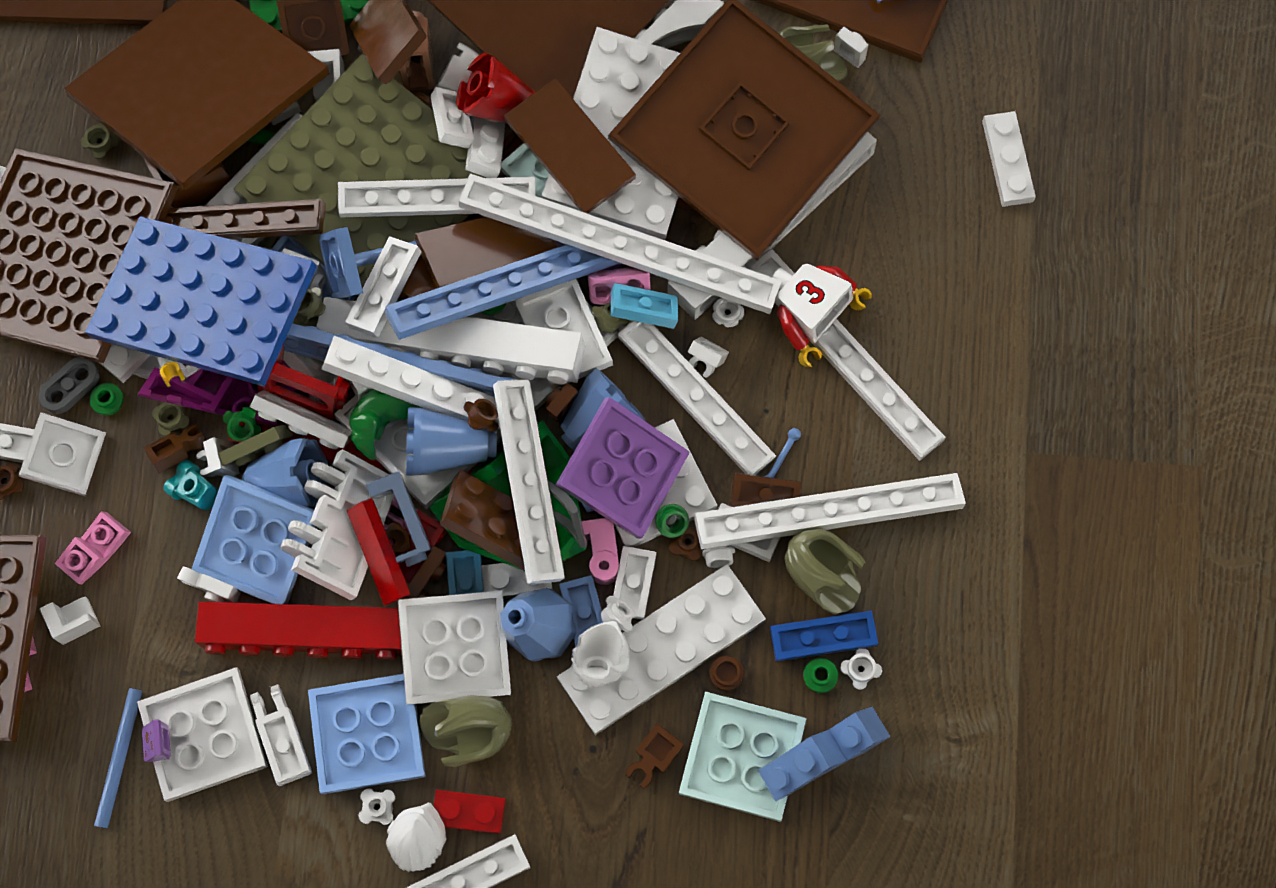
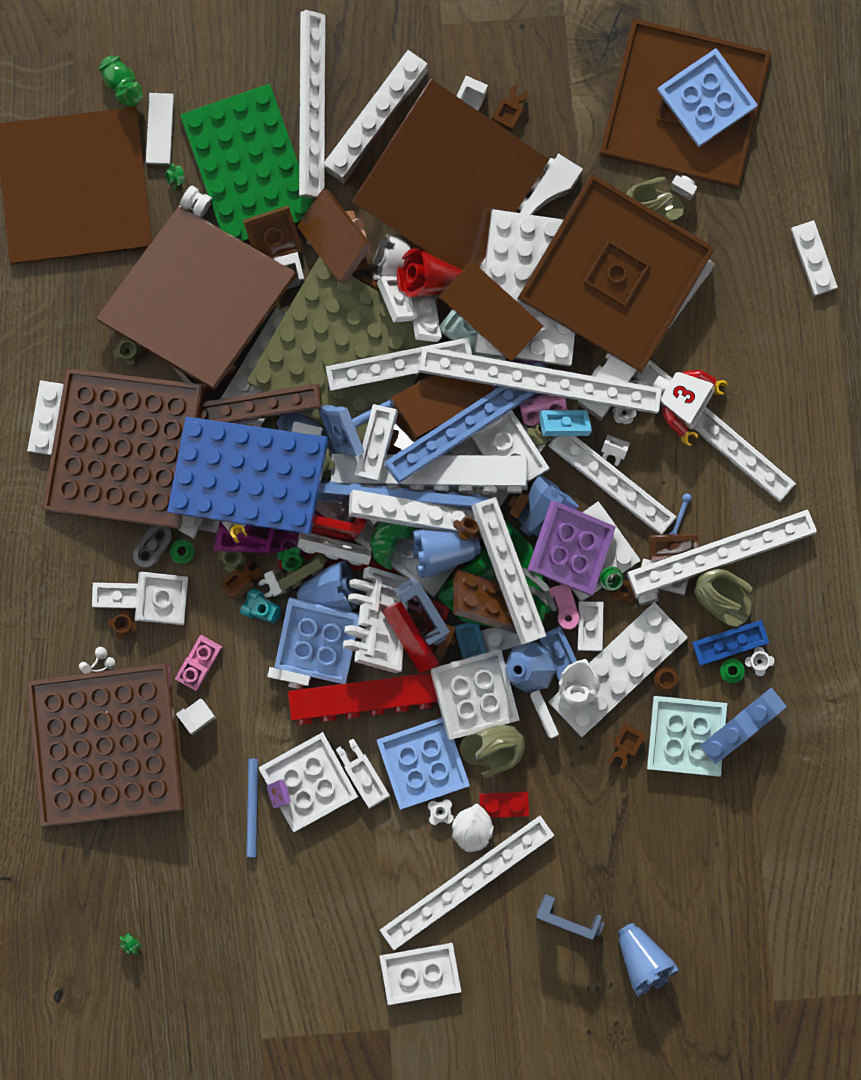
camera: 10 degrees left, 10 degrees up
(547, 693) = (544, 714): none -> white tile
(618, 611) = (584, 651): white plate -> none

